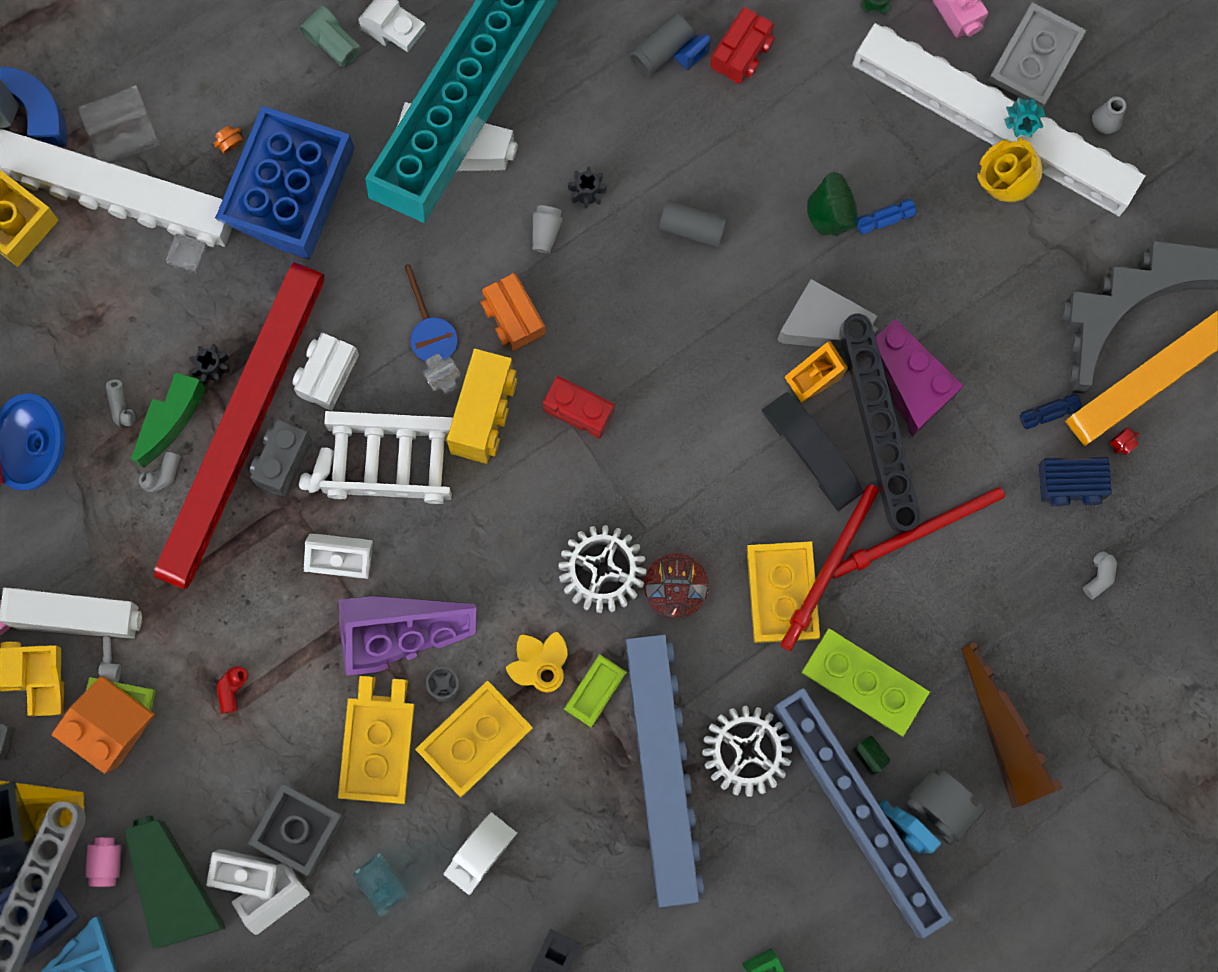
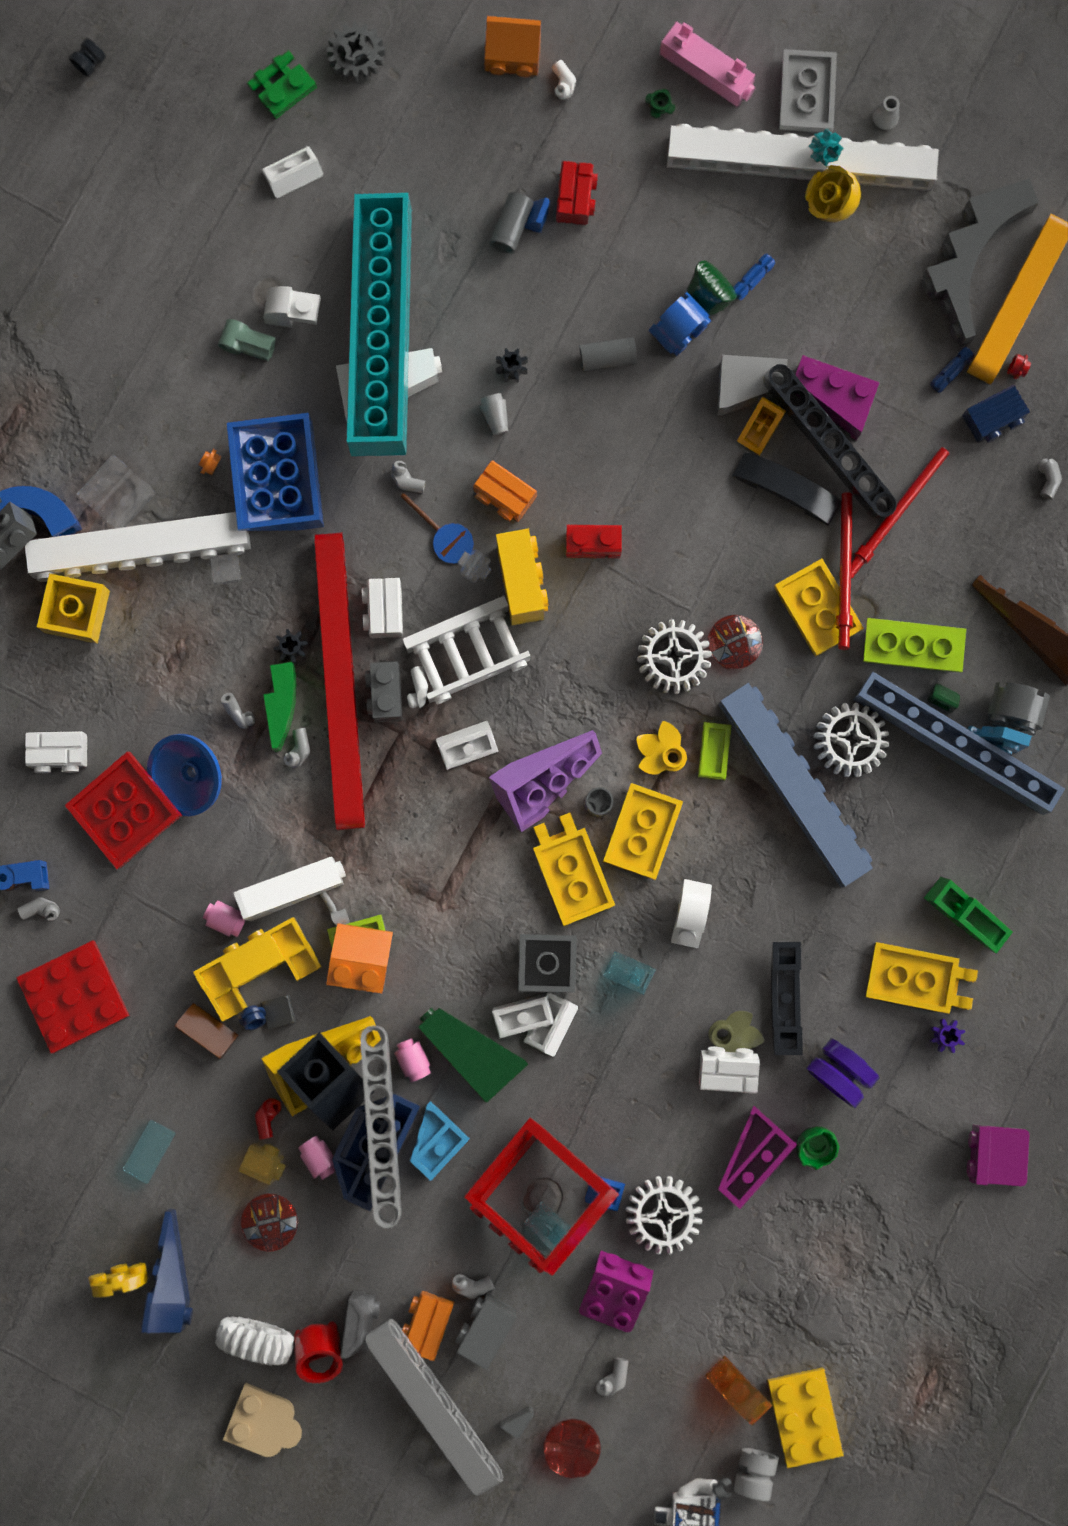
camera: 25 degrees left, 5 degrees up
(229, 686) = (436, 883): red arm -> none
(417, 251) = (404, 480): none -> light grey arm
(782, 226) = (678, 323): none -> blue brick

